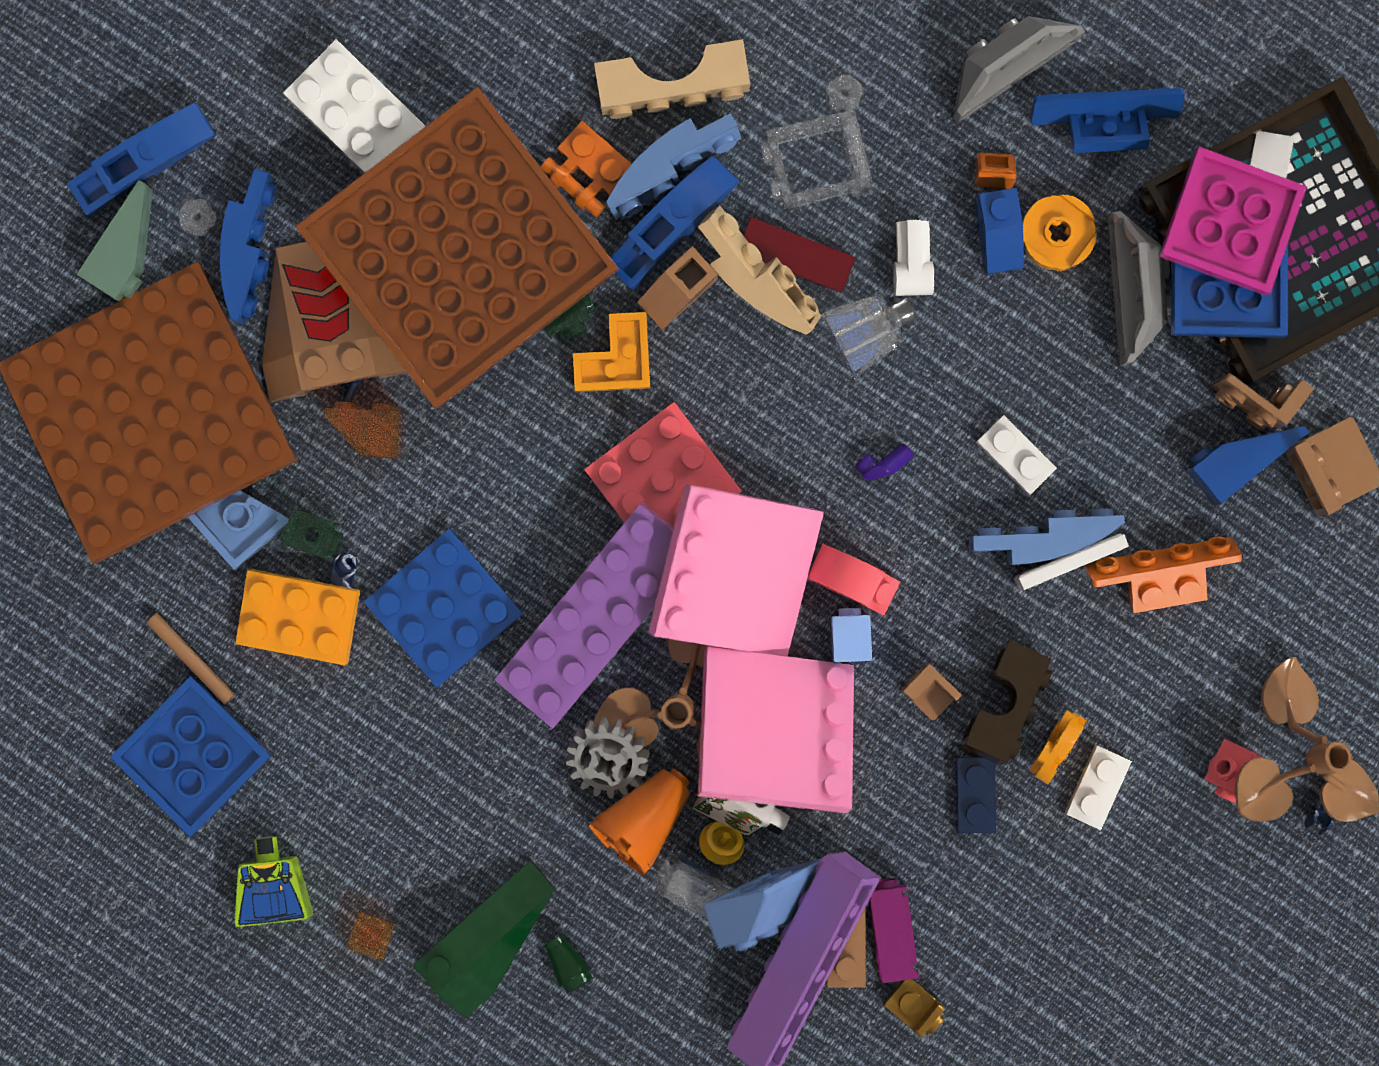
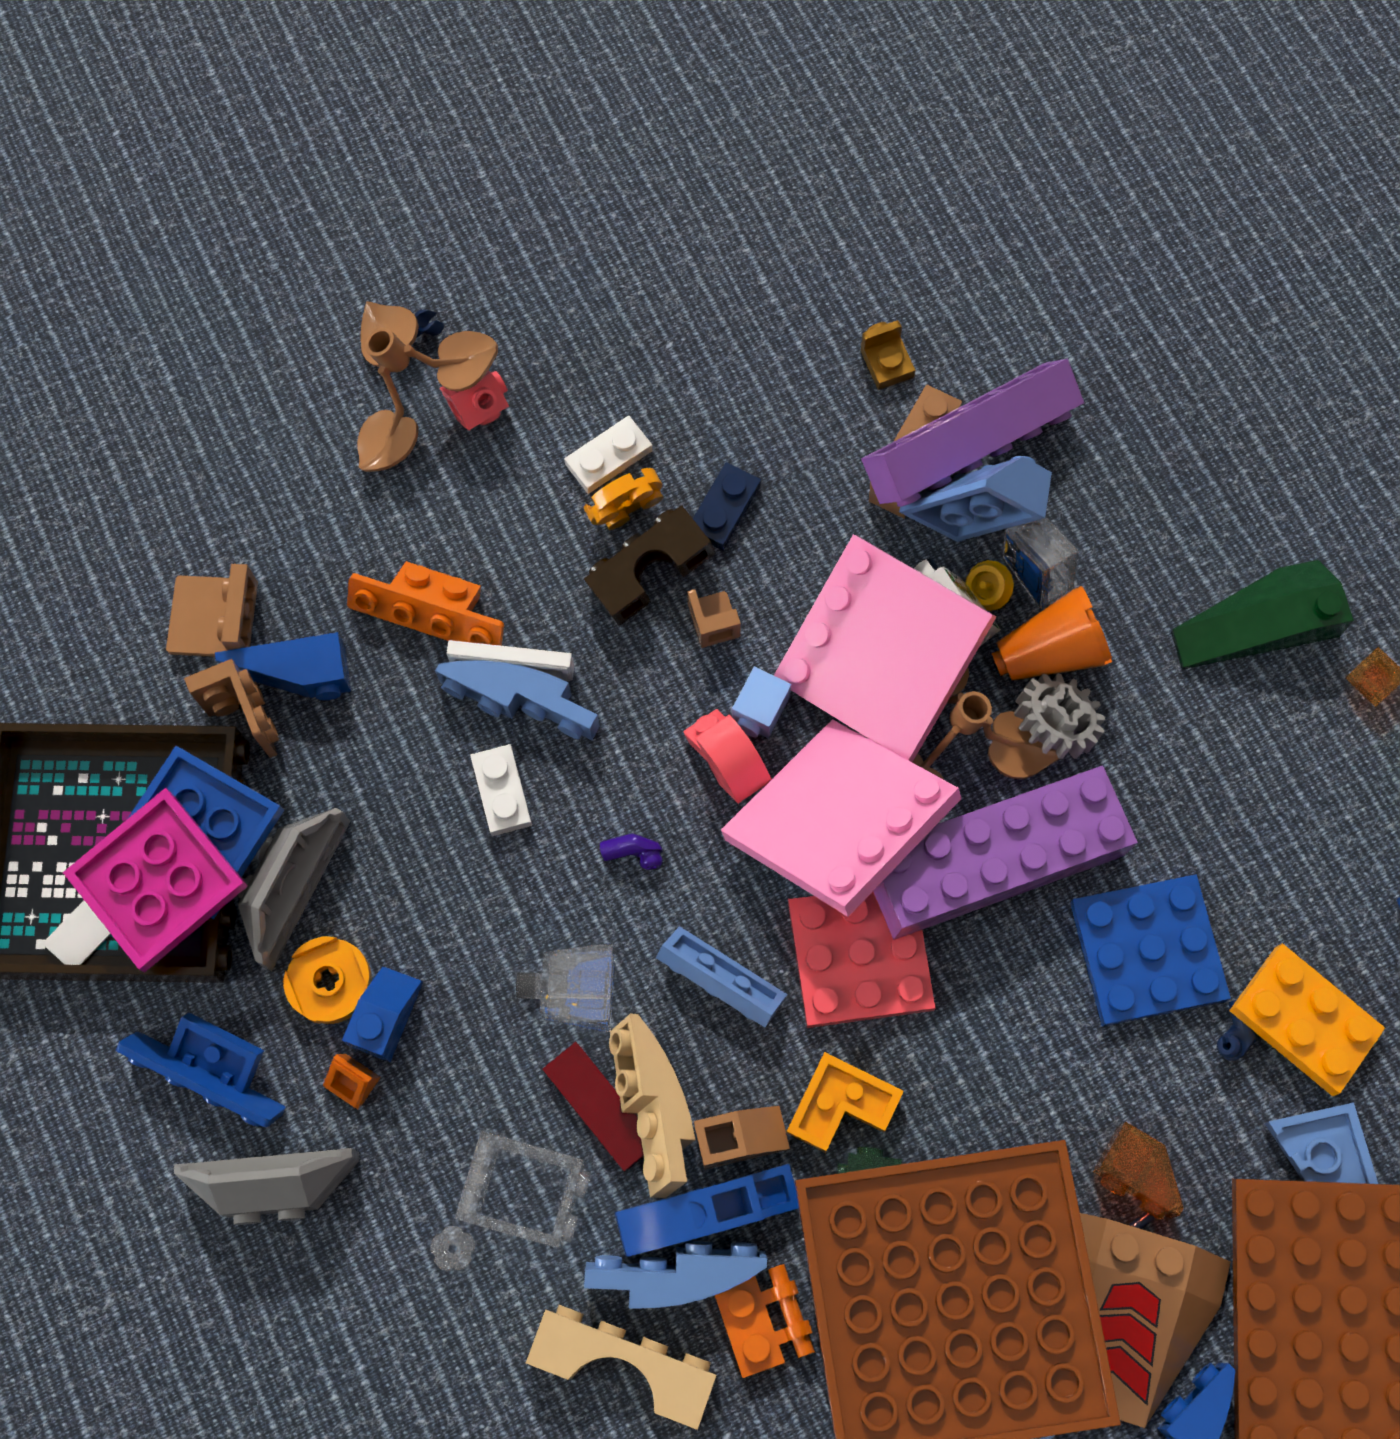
camera: 145 degrees left, 15 degrees down
(296, 530) = (1251, 1112): clear green brick -> none
(567, 964) = (1195, 553): dark green cone -> none
(760, 402) = (721, 976): none -> medium blue plate
(892, 931) = (871, 422): magenta window -> none
(913, 267) = (492, 1023): white piece -> none

